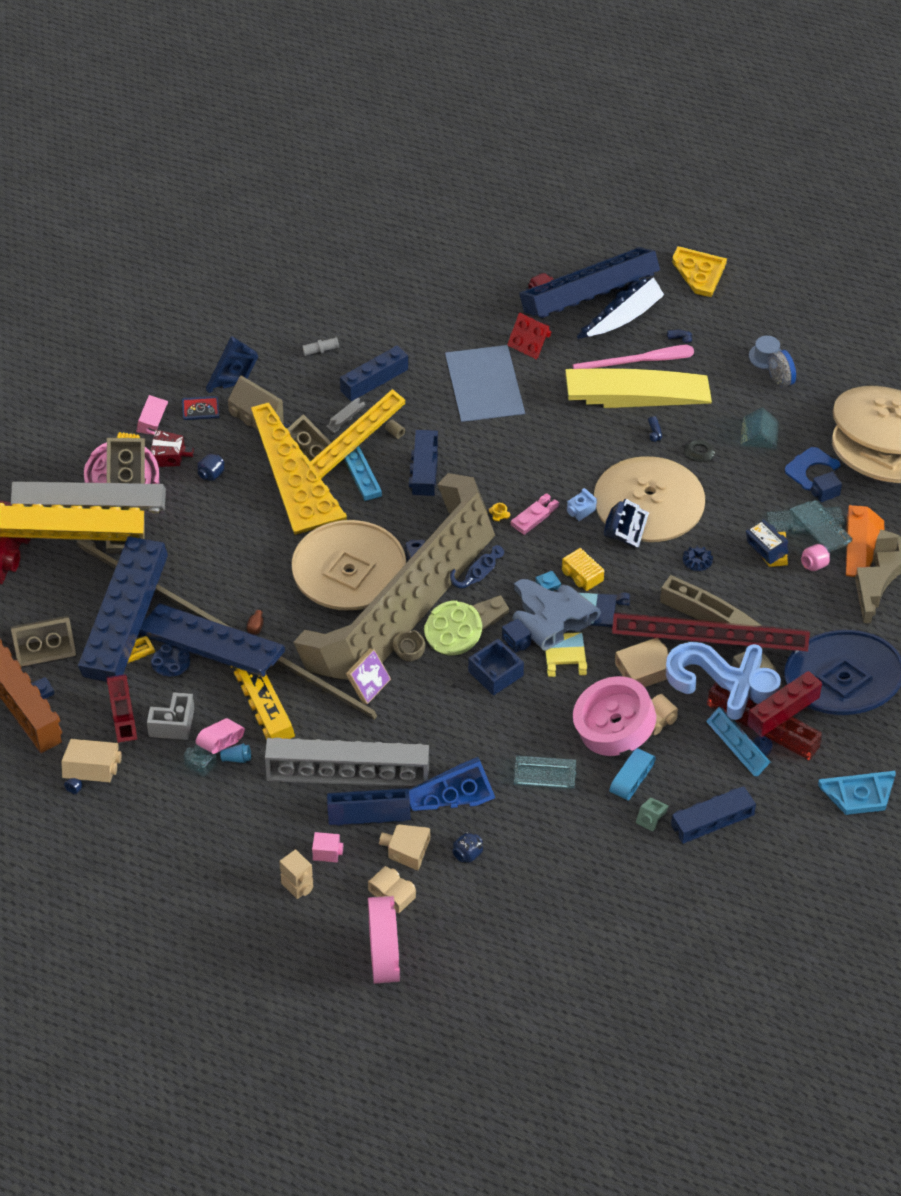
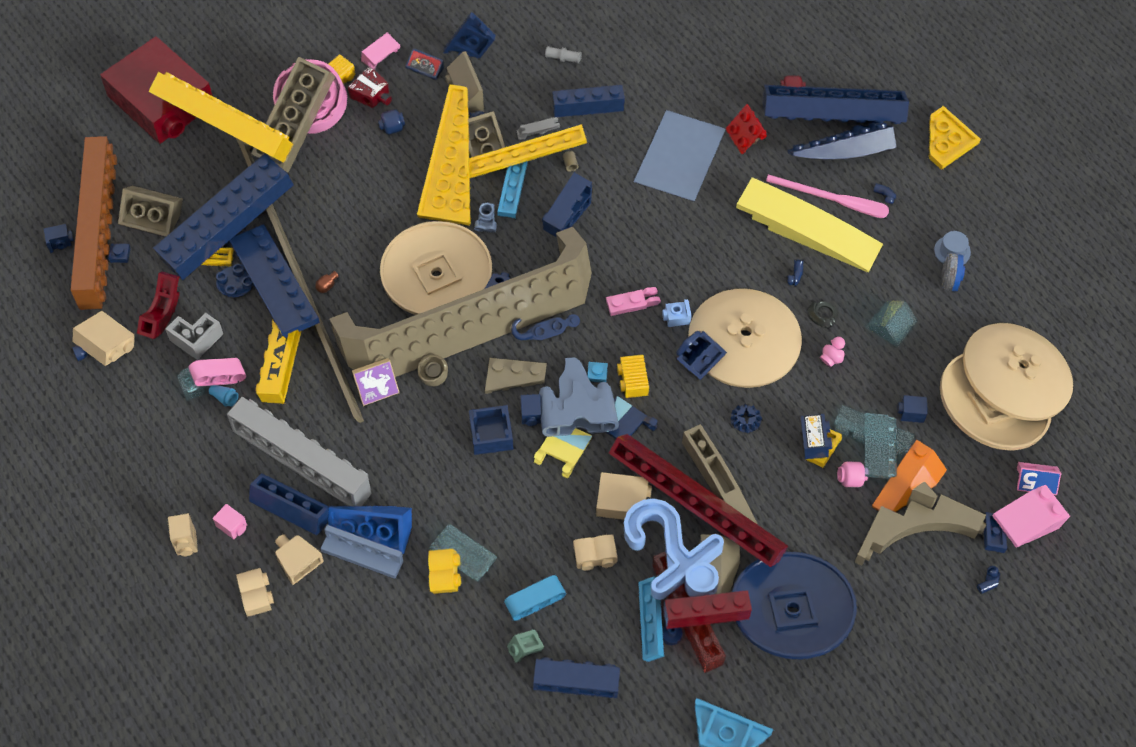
camera: 30 degrees right, 10 degrees up
(105, 495) = (254, 100): light grey brick -> none
(357, 506) = (486, 221): none -> sand blue plate
(383, 939) = (195, 640): bright pink brick -> none
(453, 628) = (482, 373): yellowish green tile -> none
(460, 815) = (362, 552): none -> sand blue fence
(467, 847) = (345, 588): dark blue head -> none
(499, 507) = (603, 279): yellow plate -> none
(542, 790) = (443, 571): none -> yellow brick
(611, 700) = (547, 517): bright pink brick -> none
(730, 475) = (832, 353): none -> bright pink animal
(797, 468) = (901, 376): blue piece -> none

